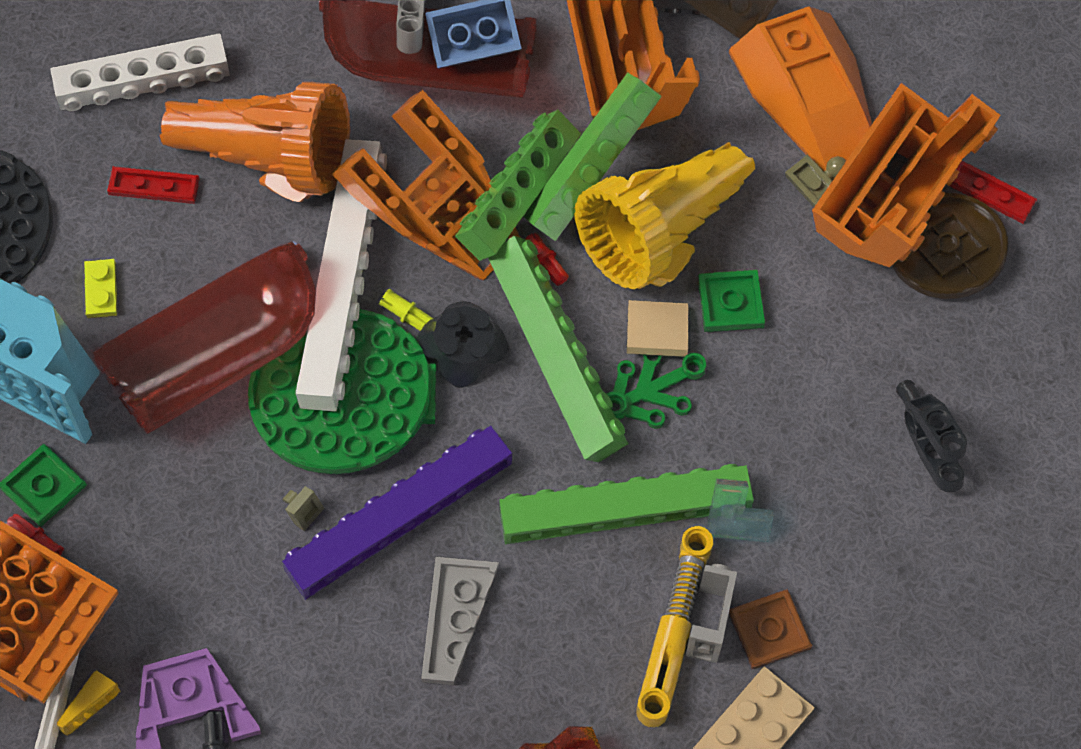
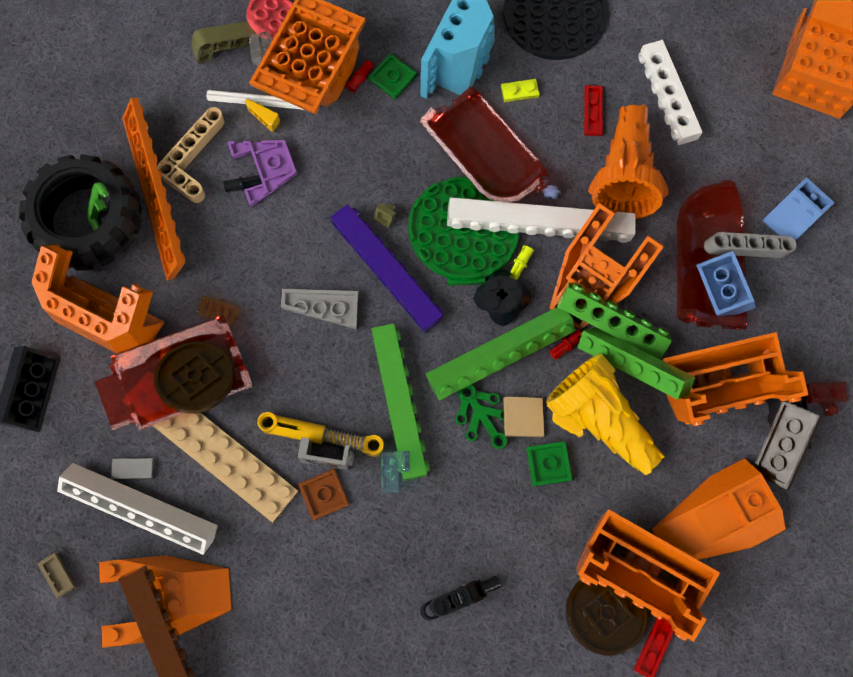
camera: 85 degrees right, 10 degrees up
(810, 178) = (648, 515): olive plate -> none

